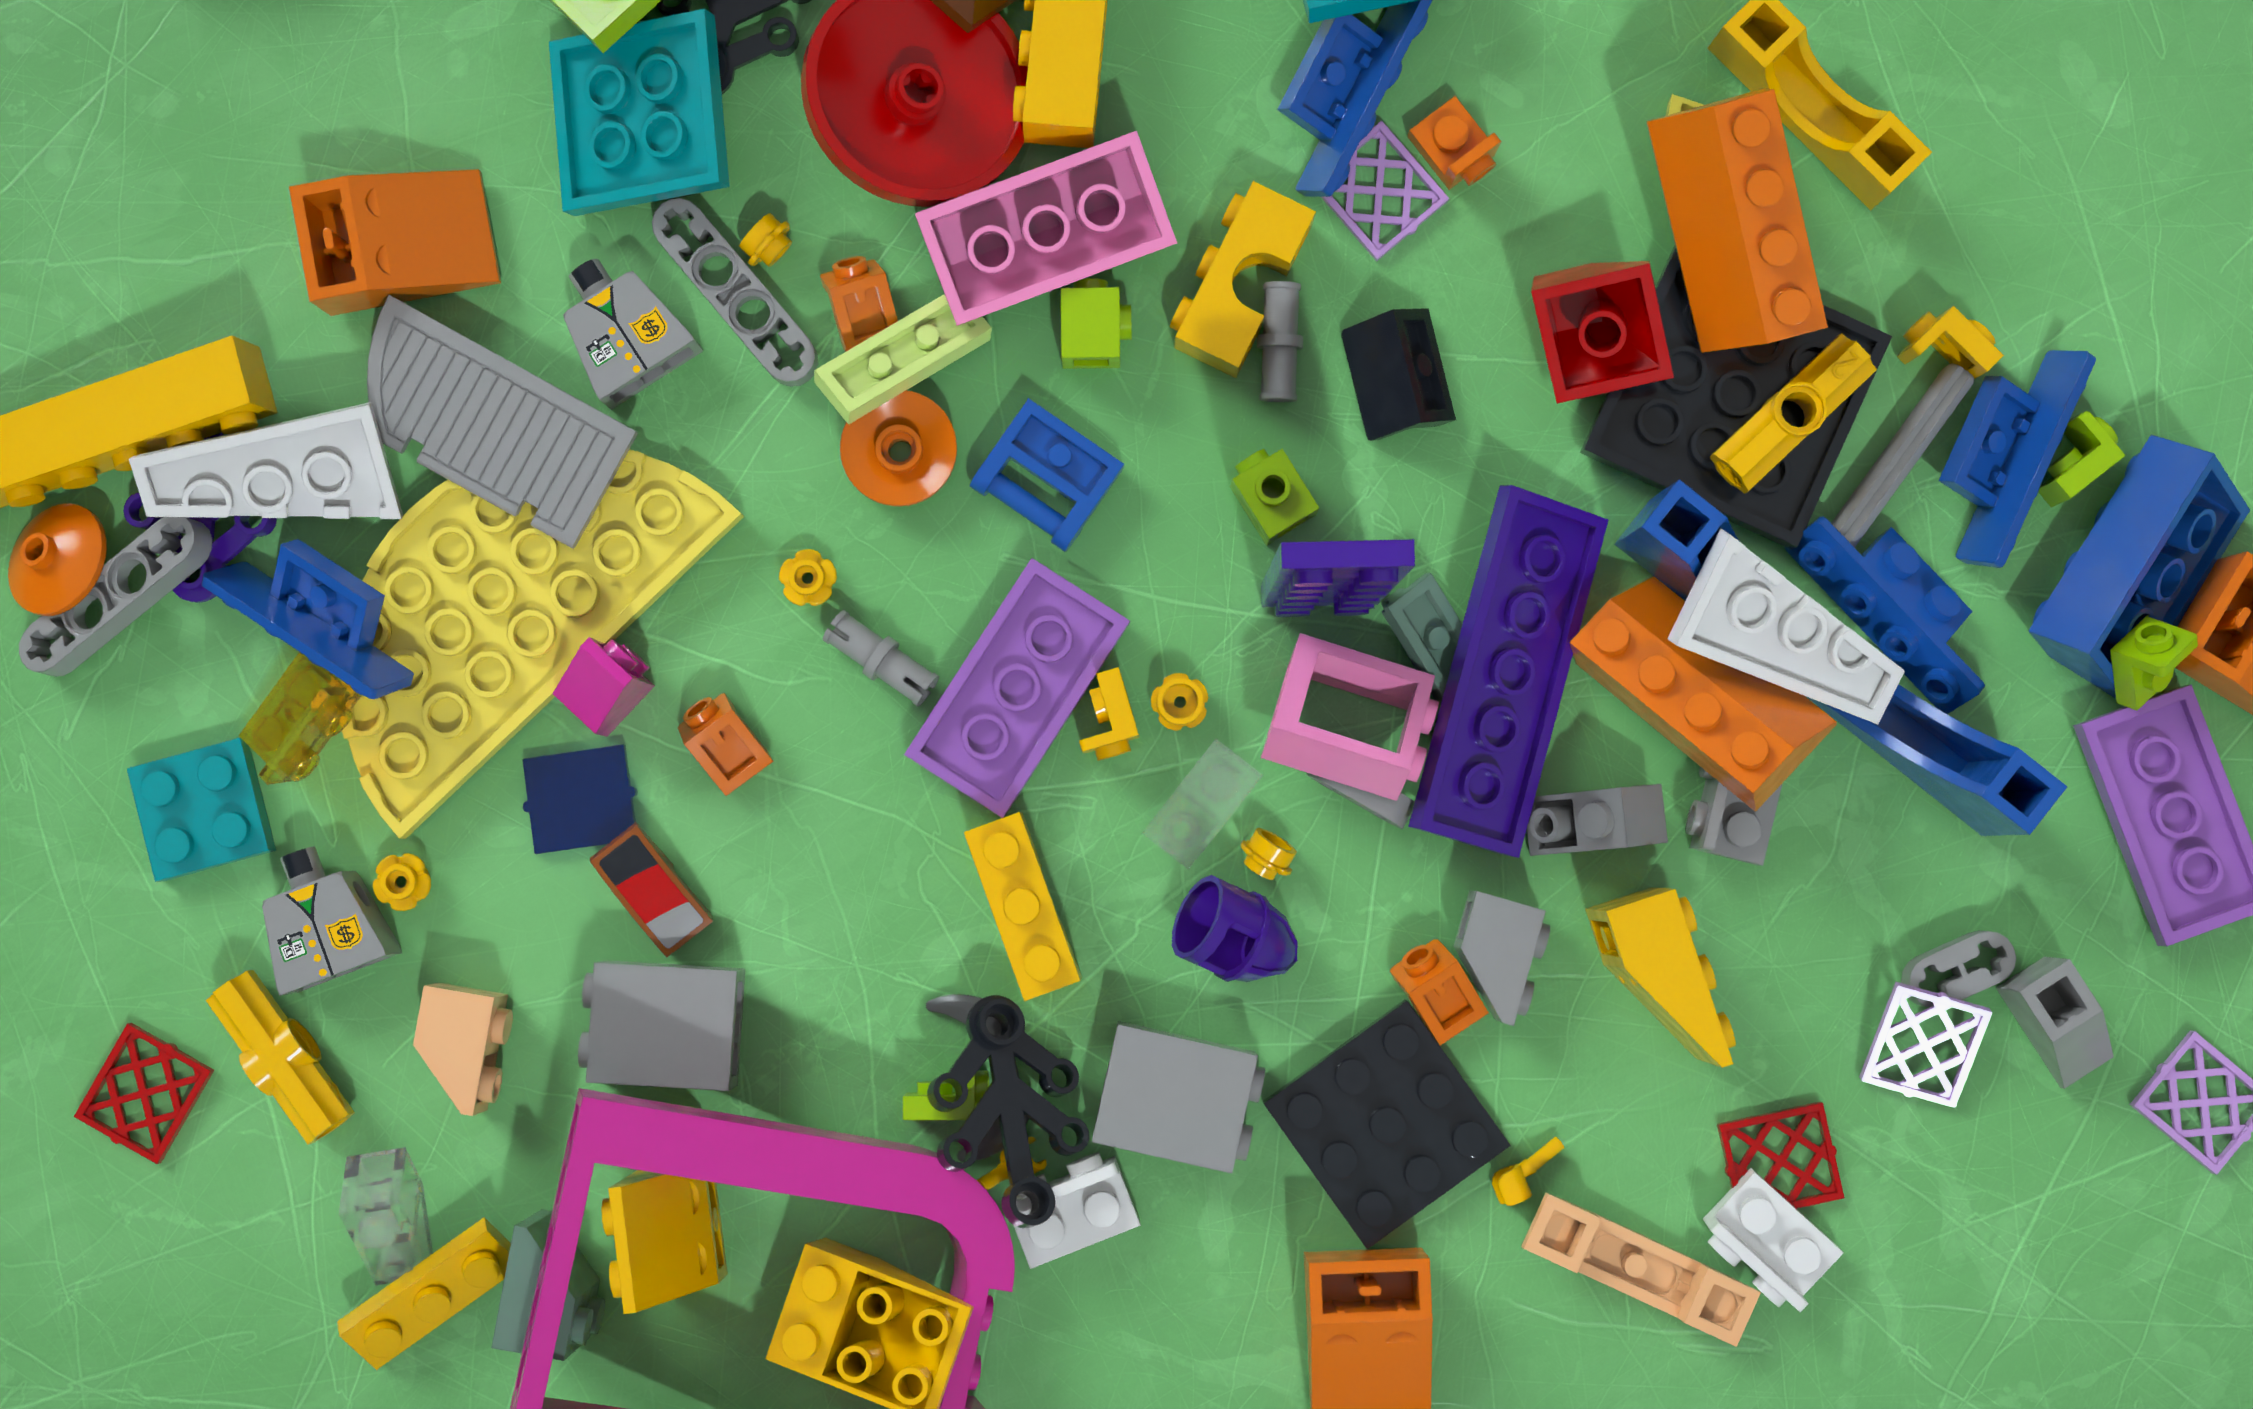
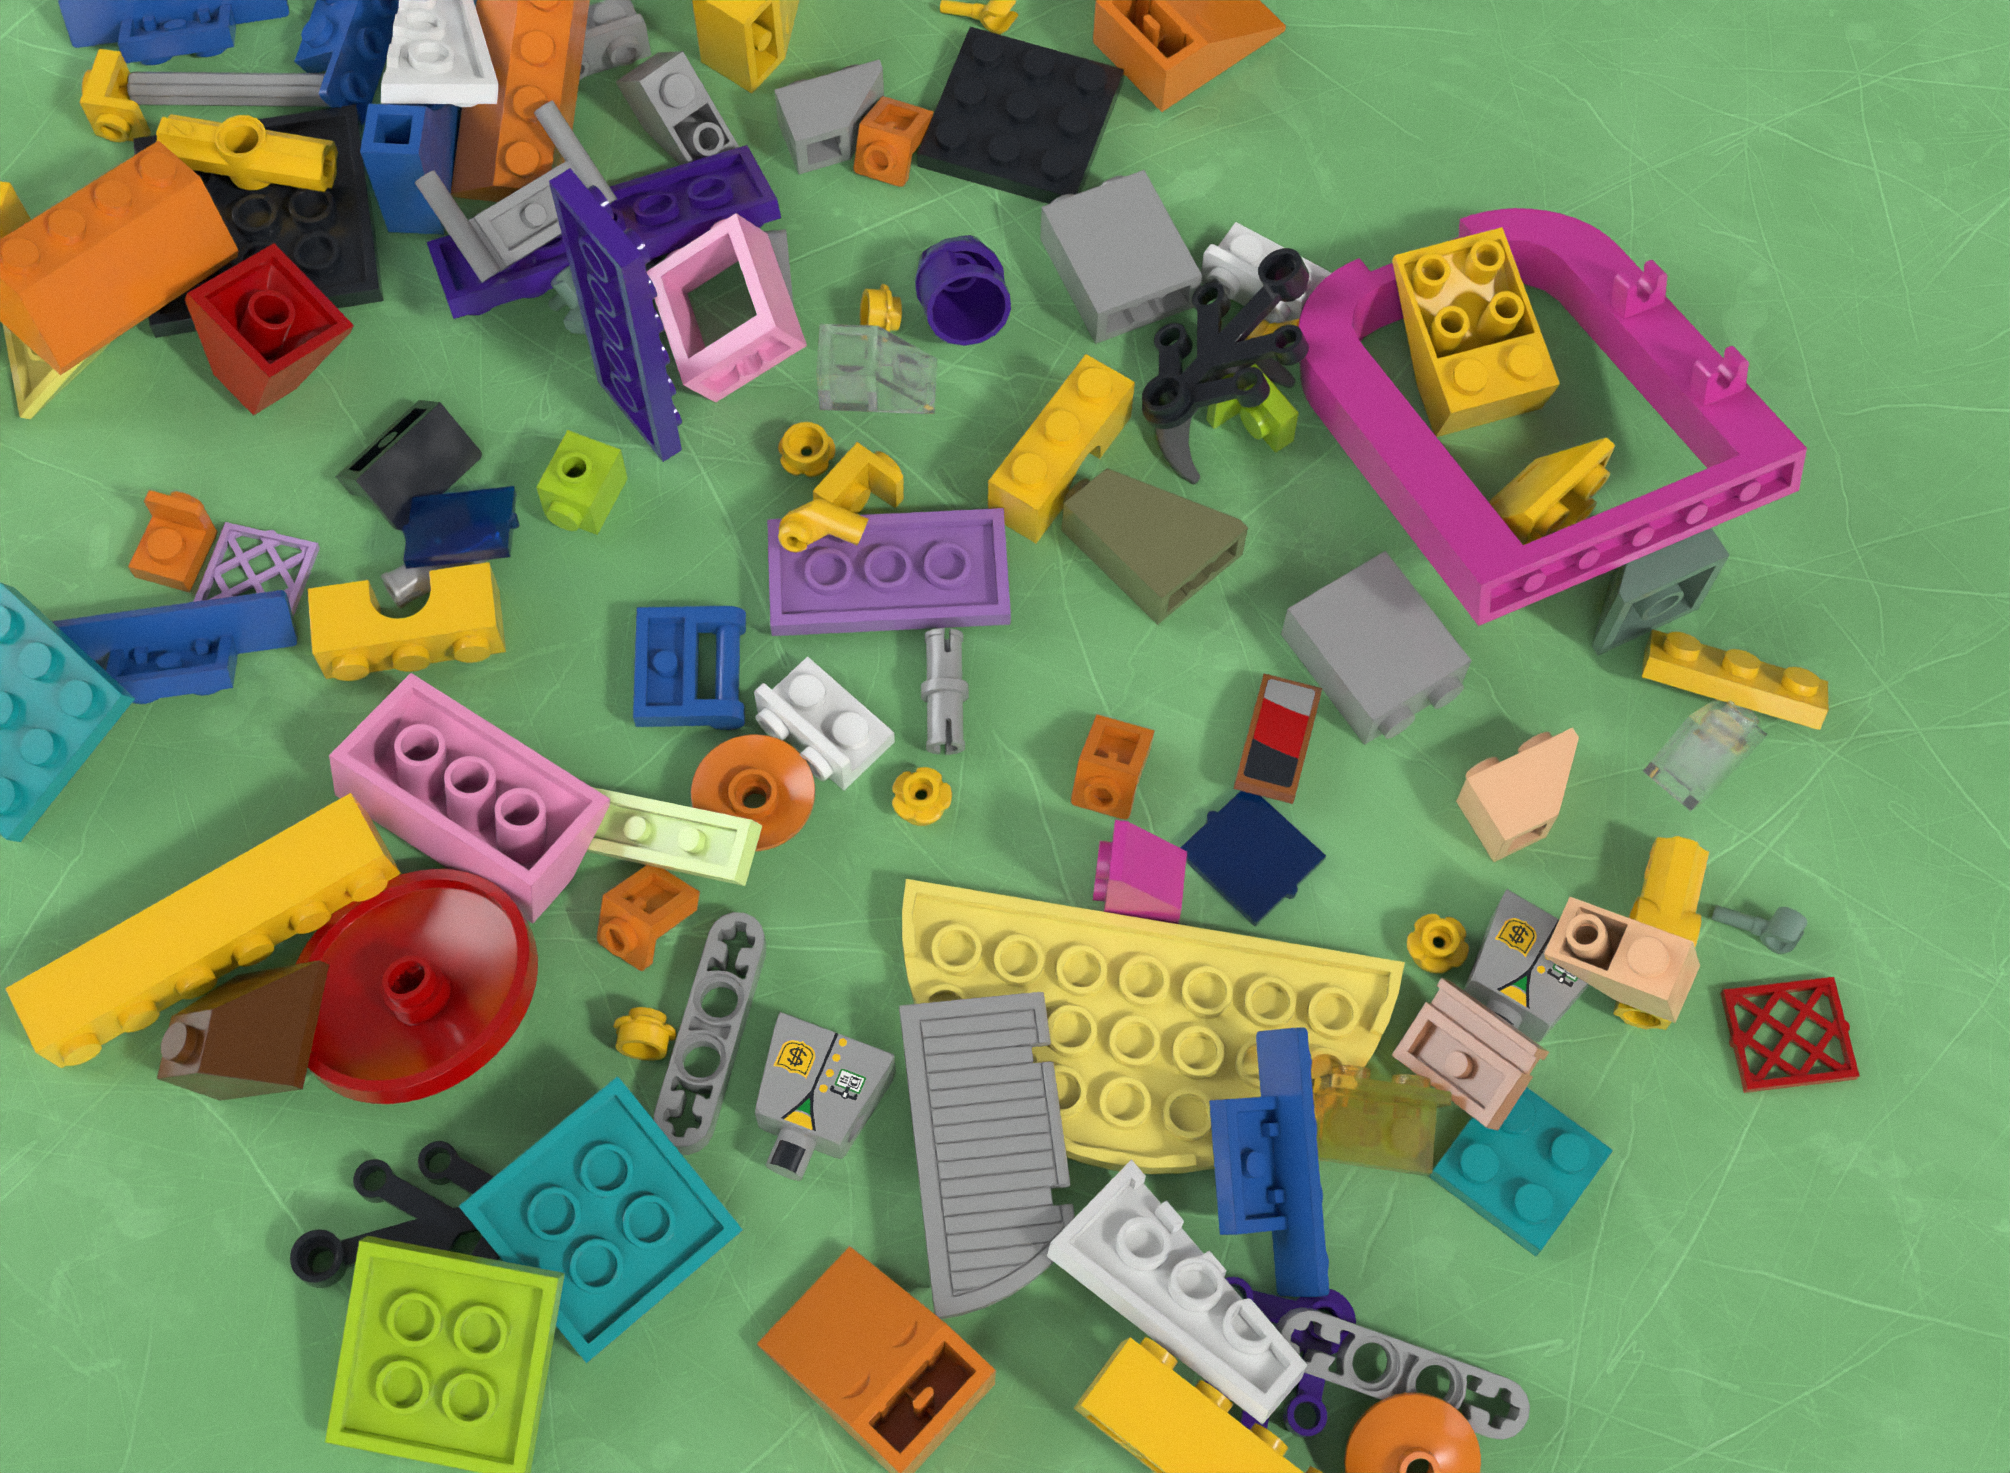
camera: 130 degrees left, 20 degrees down
(217, 1153) = (1778, 934): none -> sand green hand
(254, 987) = (1625, 958): none -> light nougat slope
(289, 825) = (1470, 1054): none -> plate
(889, 915) = (1150, 539): none -> olive slope
(924, 544) = (823, 723): none -> white bracket
(1089, 655) = (817, 520): none -> yellow arm
(1092, 325) = (535, 707): lime brick -> none
(1294, 370) = (460, 527): none -> clear blue piece
(1460, 597) = (565, 290): none -> sand green hand
(1547, 605) = (524, 218): none -> light grey plate

